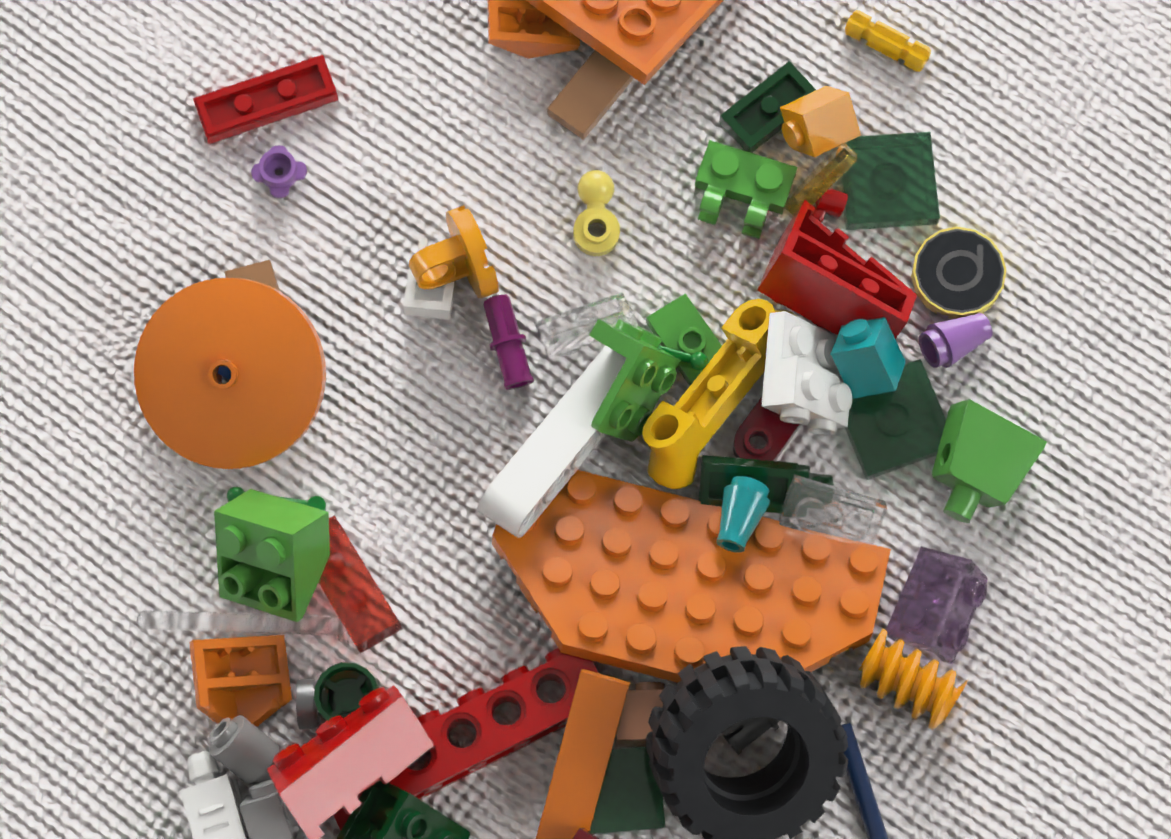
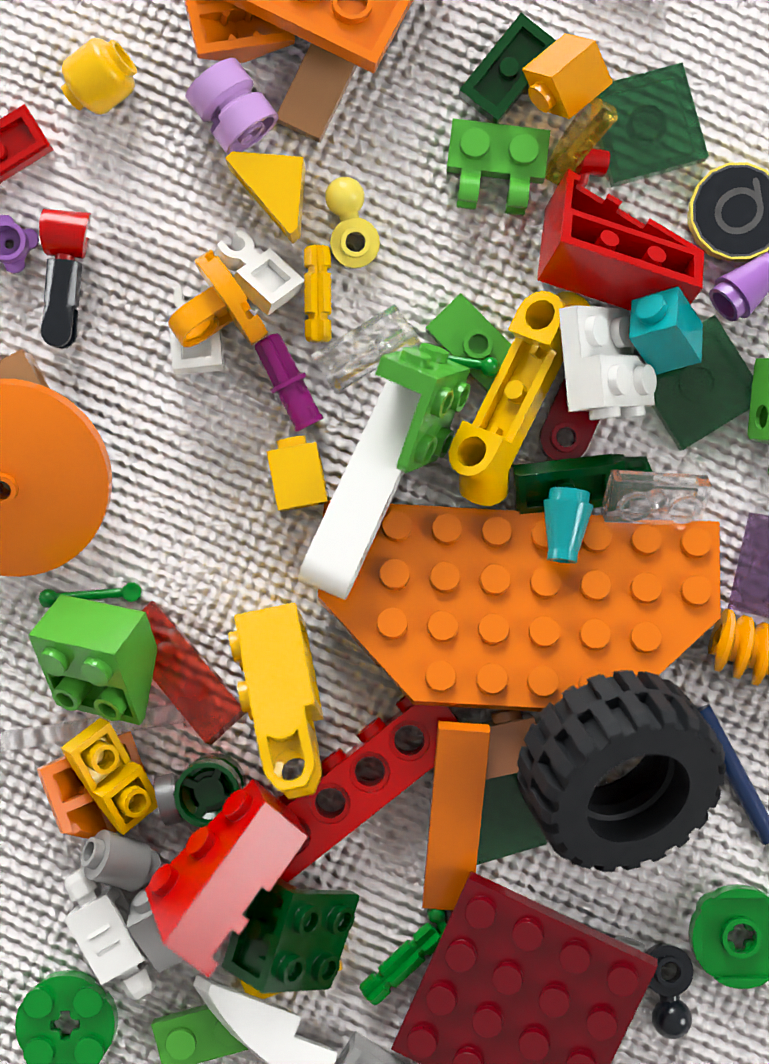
camera: 15 degrees left, 15 degrees up
(255, 665) = (110, 775): none -> yellow slope
(328, 176) = (64, 237): none -> piece
(395, 43) = (98, 76): none -> yellow head
(437, 611) = (280, 693): none -> yellow brick
(497, 425) = (297, 474): none -> yellow brick
(507, 243) = (262, 276): none -> white plate
(508, 85) = (226, 99): none -> lavender wheel
(534, 166) = (275, 185): none -> yellow slope
(552, 269) = (317, 293): none -> yellow axle

